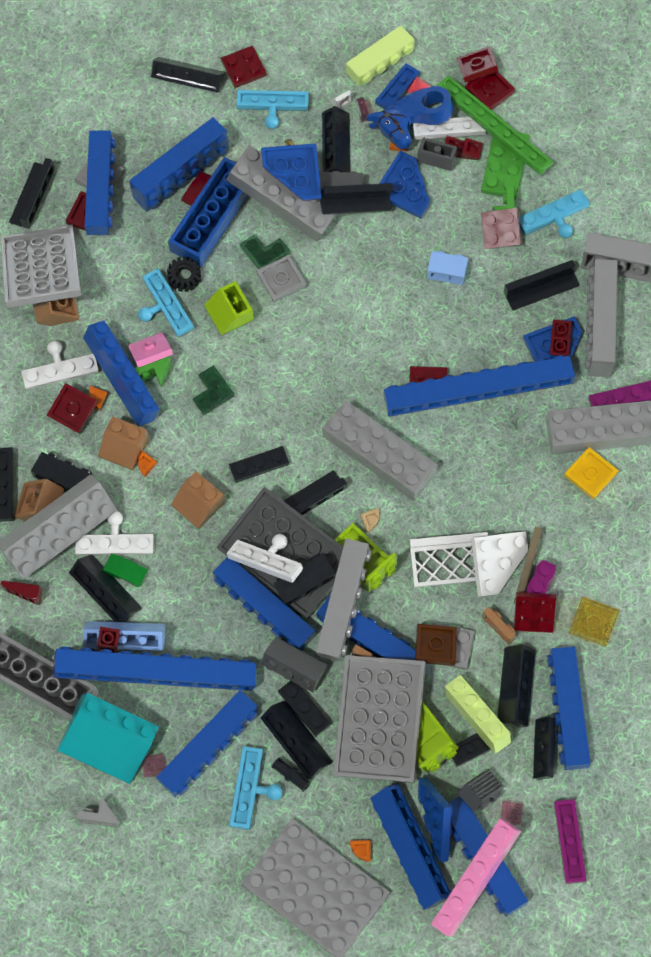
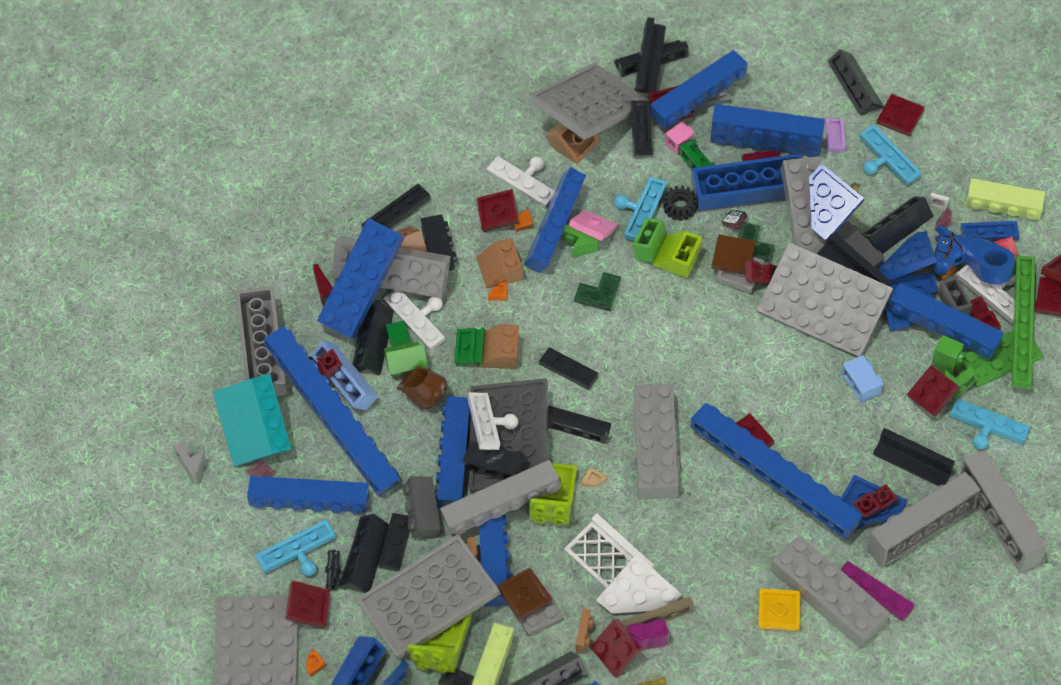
camera: 50 degrees right, 10 degrees down
(37, 193) = (650, 56): none -> black panel
(55, 556) = (361, 278): none -> blue brick
(95, 249) = (641, 127): none -> black plate
(126, 229) = (677, 136): none -> bright pink brick
(148, 577) = (405, 358): none -> bright green brick
(154, 233) = (693, 155): none -> green hinge
(178, 521) = (469, 346): none -> green plate
(186, 583) = (423, 387): none -> reddish brown piece
(200, 320) = (649, 239): none -> bright green brick
(230, 125) = (835, 135): none -> lavender tile
(232, 247) = (734, 219): none -> tile
(266, 272) = (732, 254): none -> reddish brown tile
(300, 264) = (759, 273): none -> dark red slope
(309, 816) = (307, 604): none -> dark red plate
(362, 240) = (825, 299): none -> light grey plate
(376, 154) = (910, 256): none -> blue plate
(451, 174) = (945, 320): none -> blue brick
(482, 196) = (948, 355): none -> bright green brick

